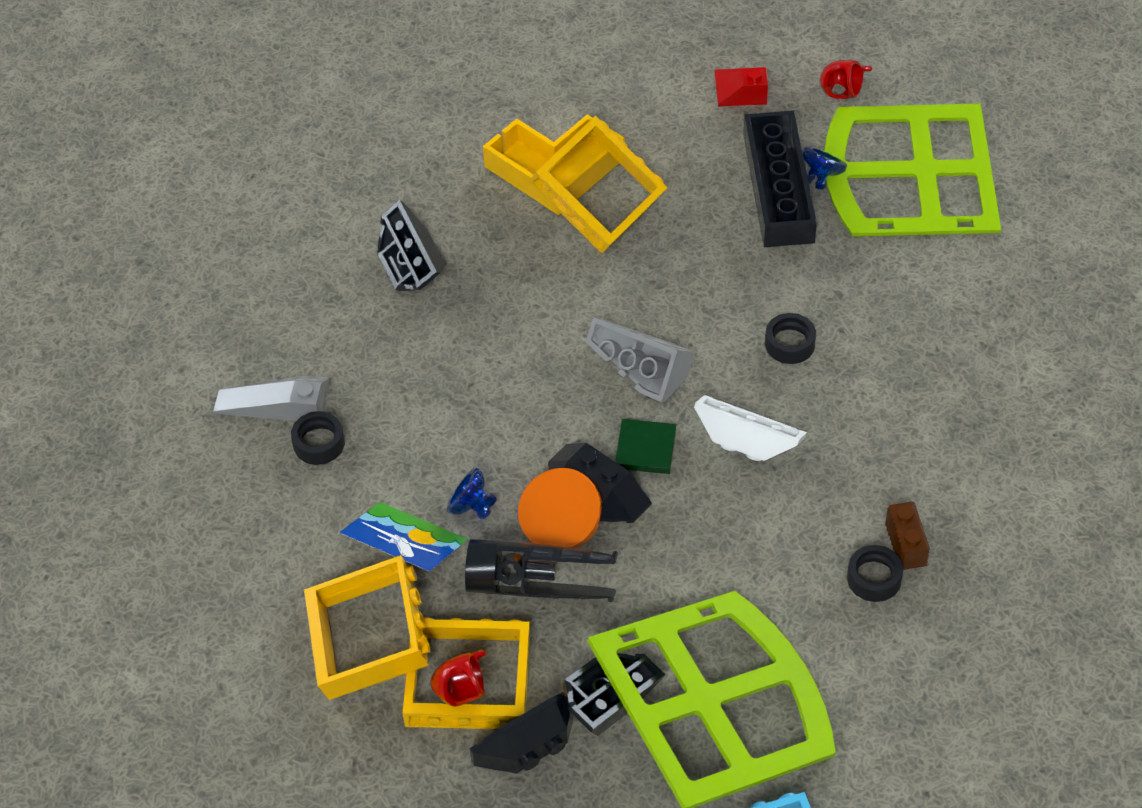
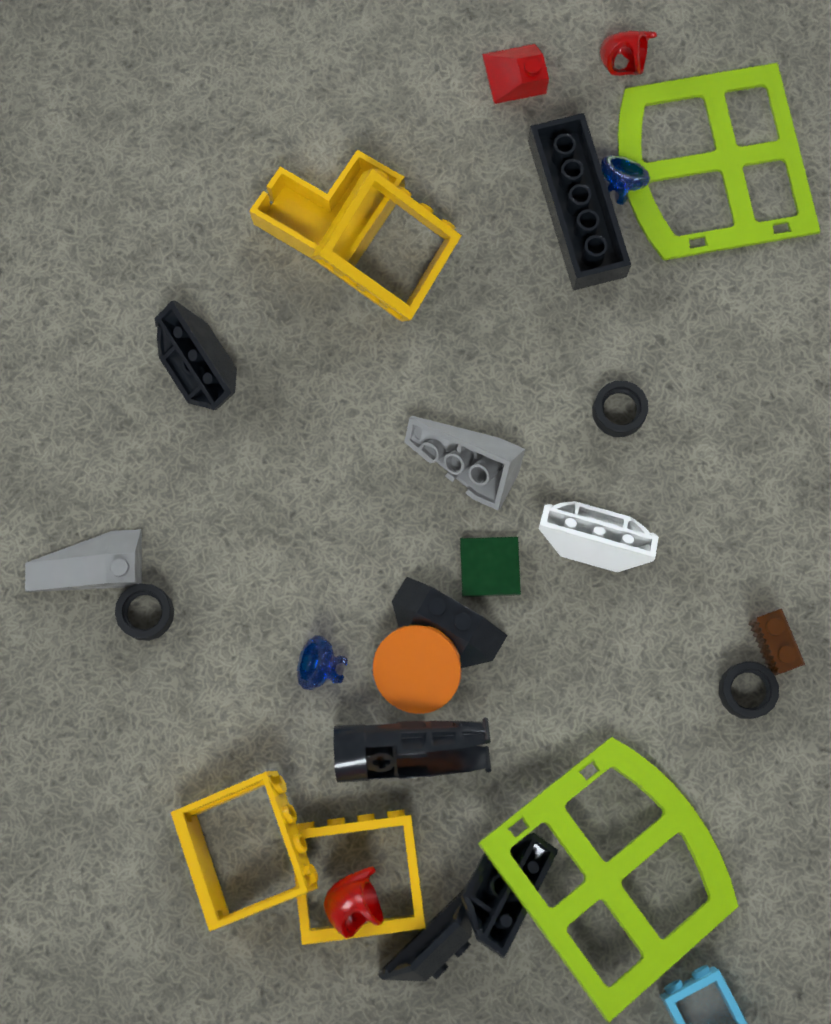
camera: 10 degrees left, 25 degrees up
(404, 535) = (260, 728): sticker -> none

